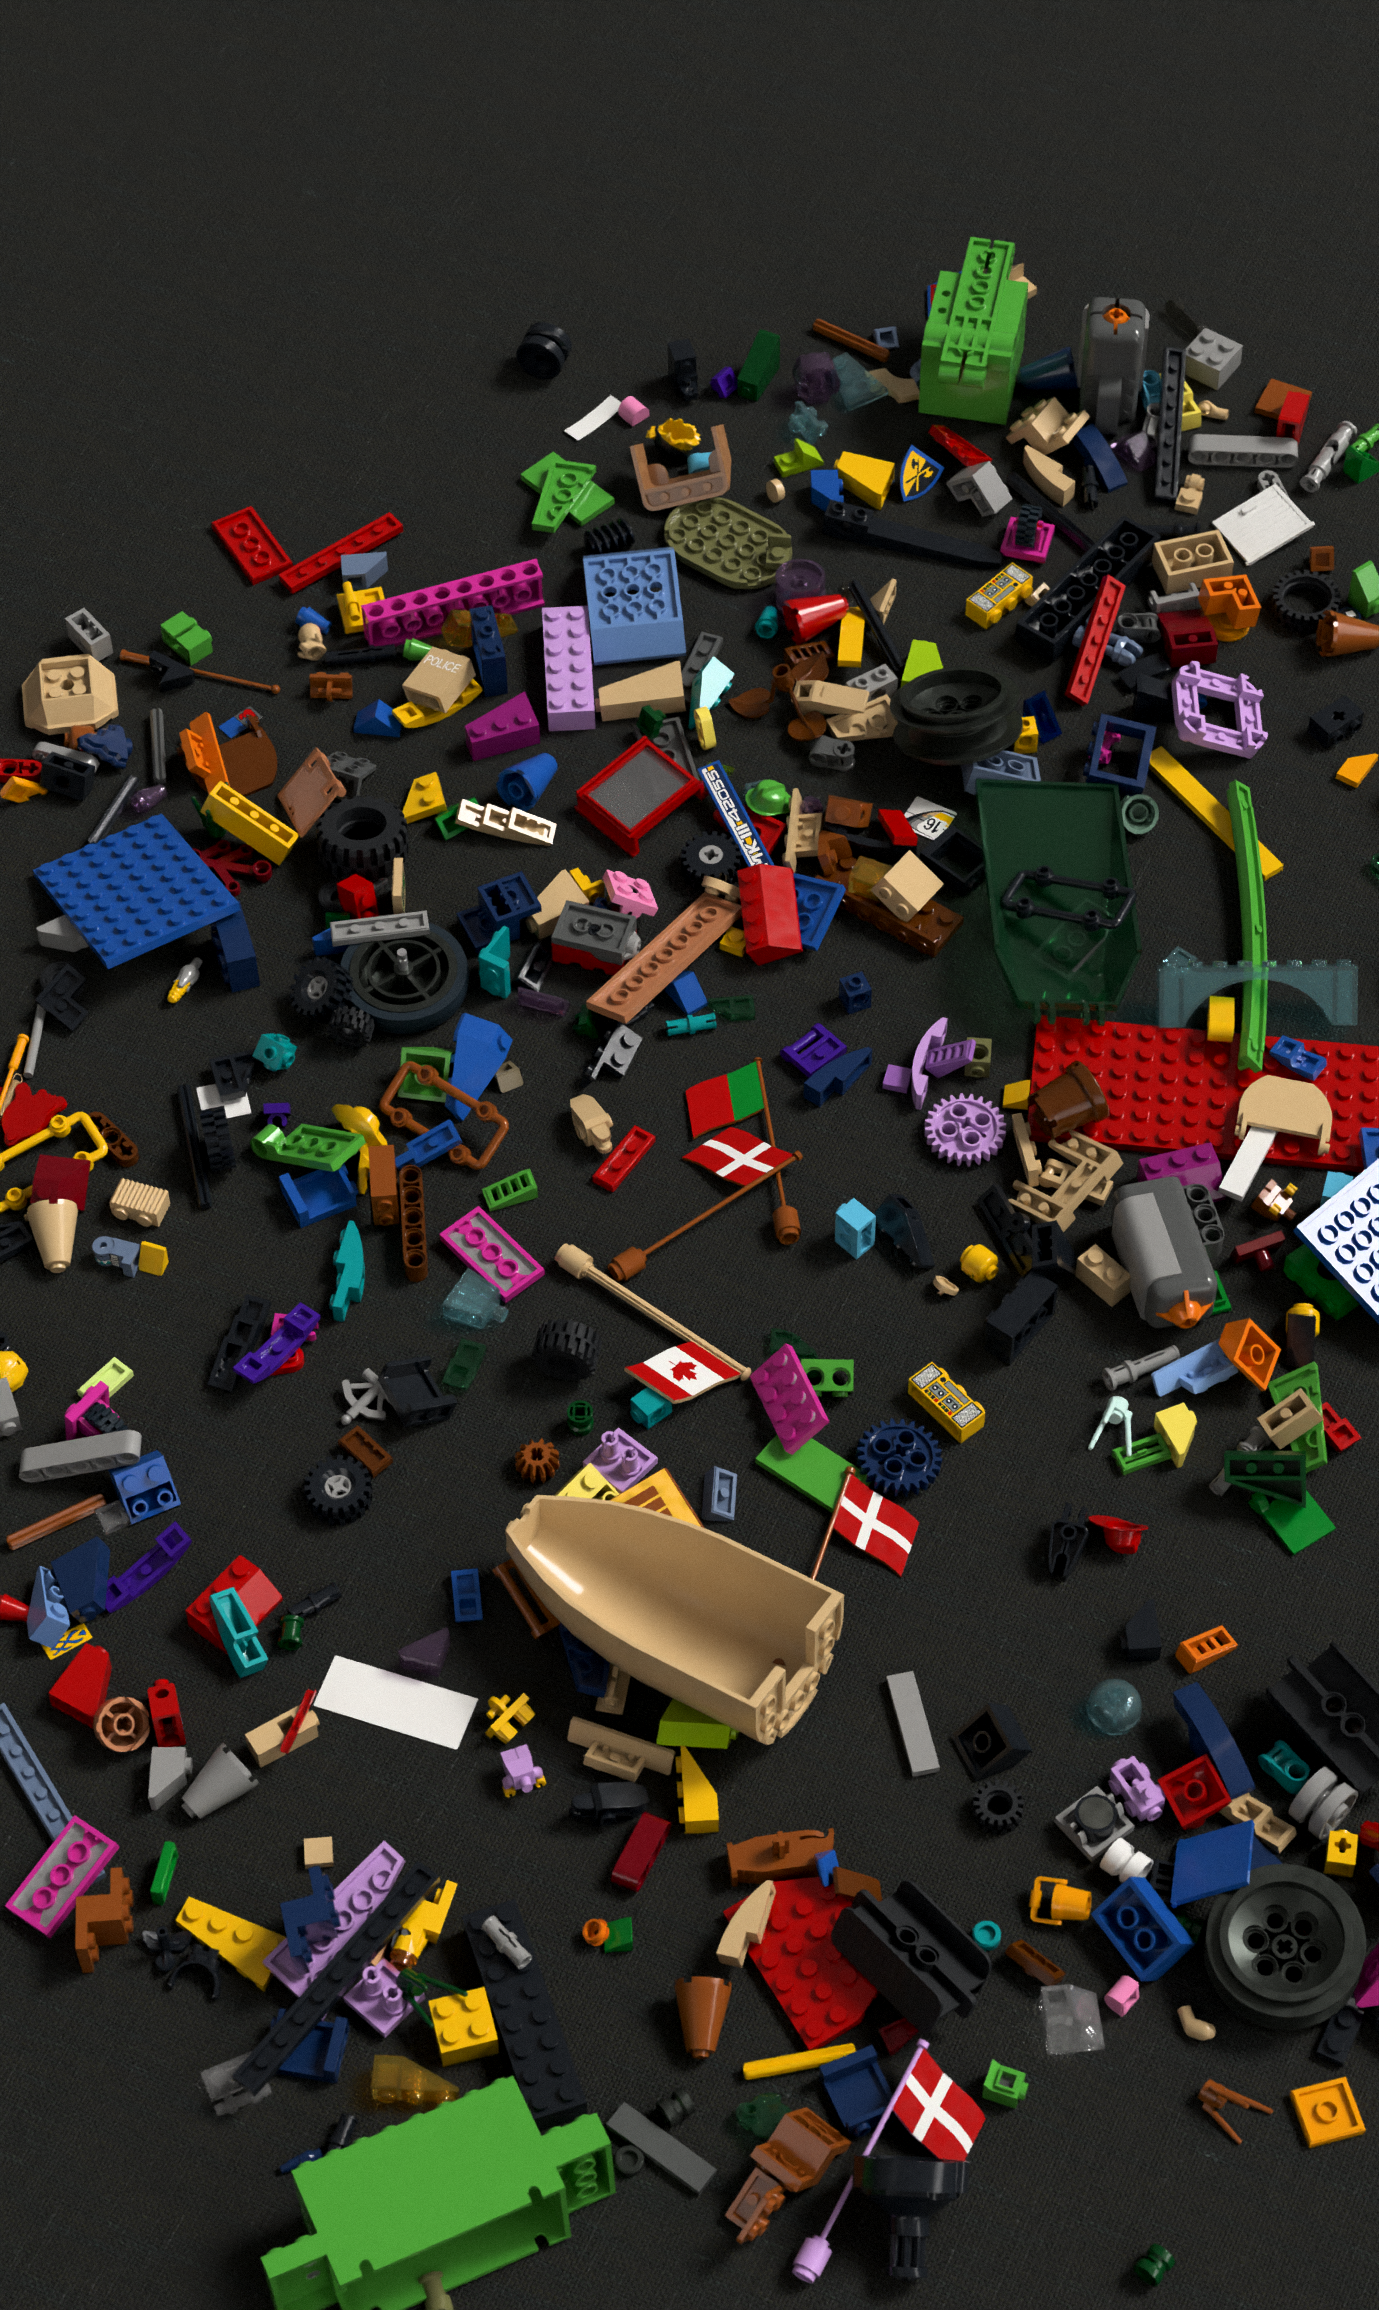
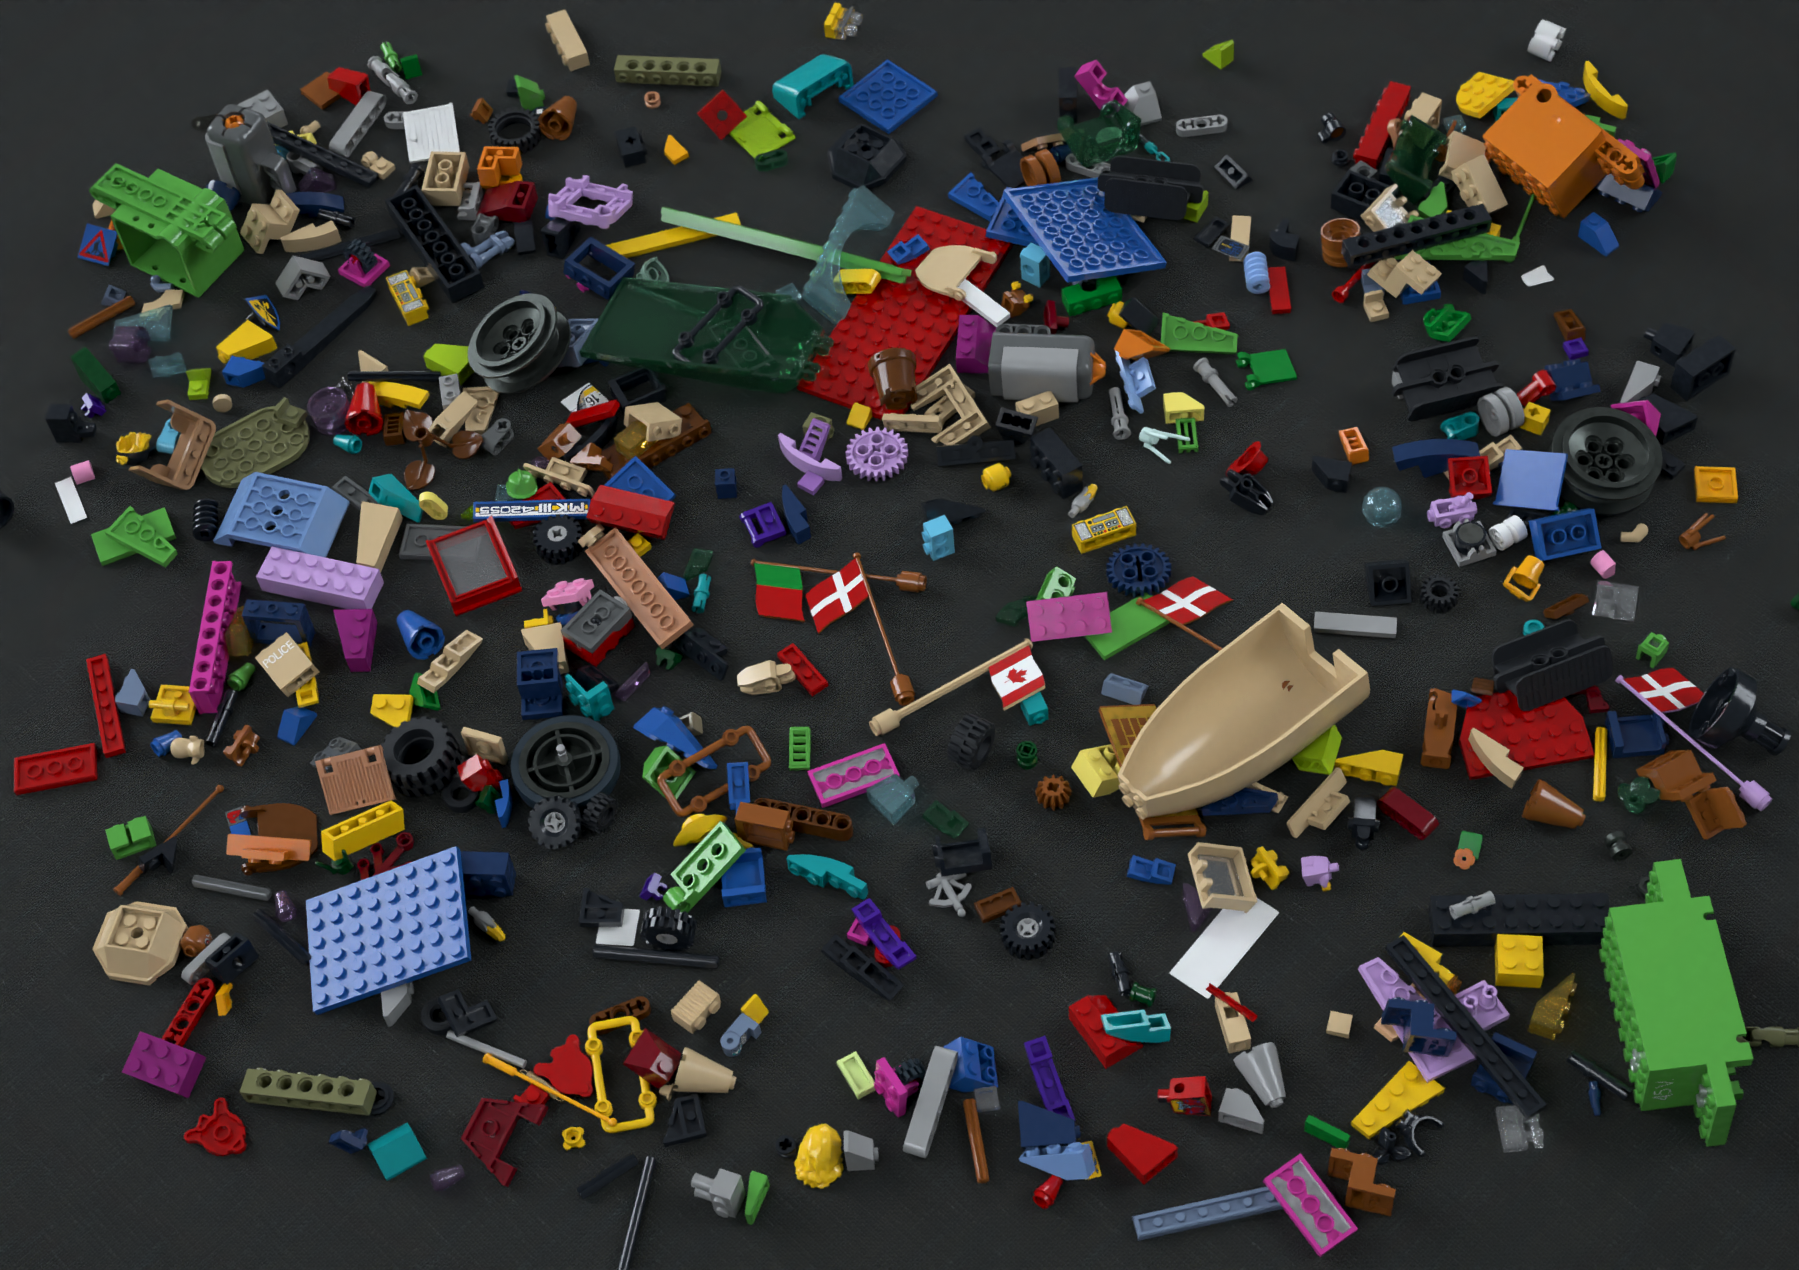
camera: 65 degrees left, 0 degrees up
(89, 635) = (87, 907): light grey brick -> none
(108, 745) = (217, 918): dark blue rock -> none
(121, 1724) = (1189, 1129): nougat cylinder -> none
(275, 1051) = (596, 872): teal brick -> none
(379, 928) = (517, 765): light grey tile -> none
(415, 1984) = (1480, 977): dark green plant -> none
(469, 1667) = (1222, 877): none -> tan window
(621, 1460) = (1073, 737): lavender plate -> none
(650, 721) = (407, 538): dark green tile -> none
(661, 2148) = (1639, 867): dark grey tile -> none
(945, 1286) = (1003, 504): tan piece -> none
(959, 447) = (251, 280): red wing -> none
(986, 1368) = (1083, 500): none -> light grey piece
(1095, 640) = (487, 250): red plate -> none
(1269, 1472) = (1242, 360): dark green wedge -> none
(1290, 1418) = (1203, 337): tan brick -> none

